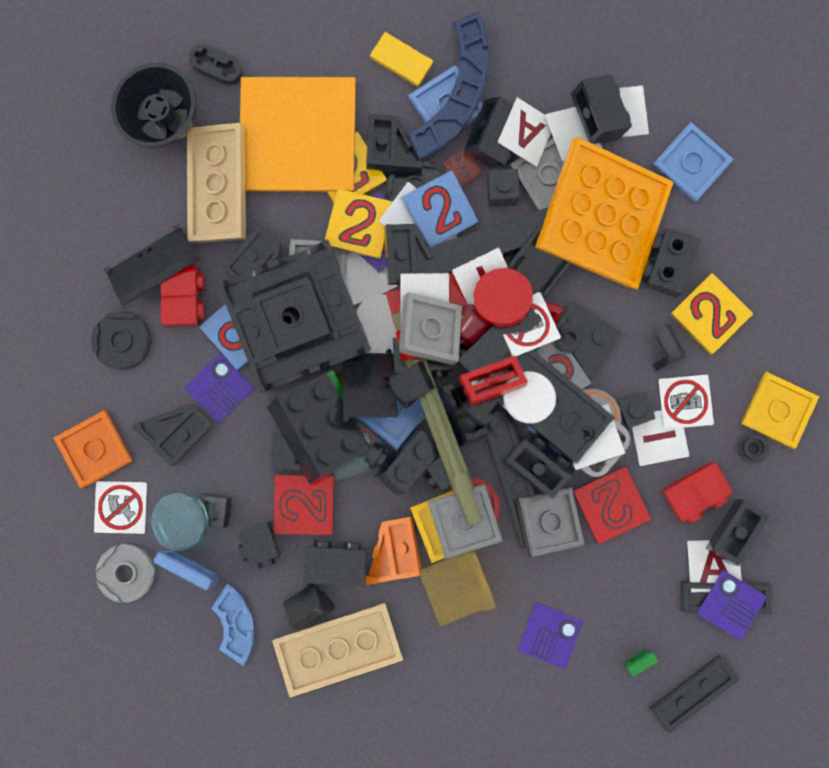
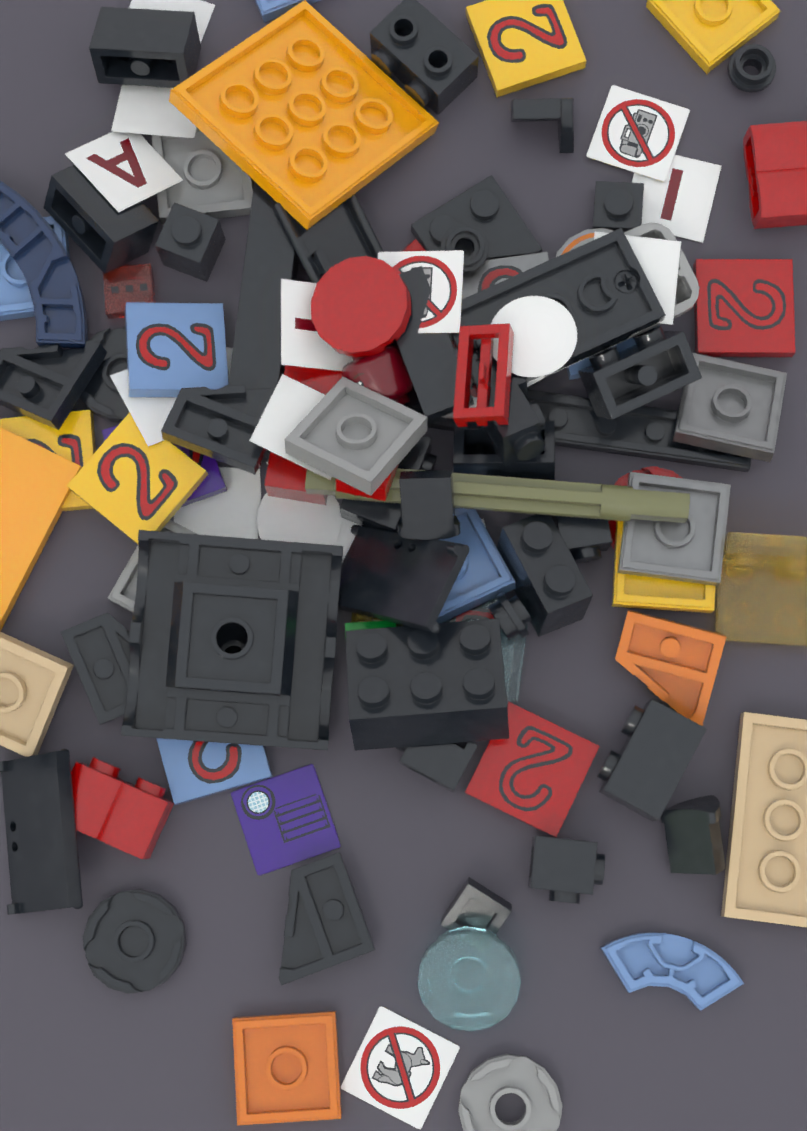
camera: 60 degrees left, 5 degrees down
(187, 569) = (553, 998): medium blue tile -> none

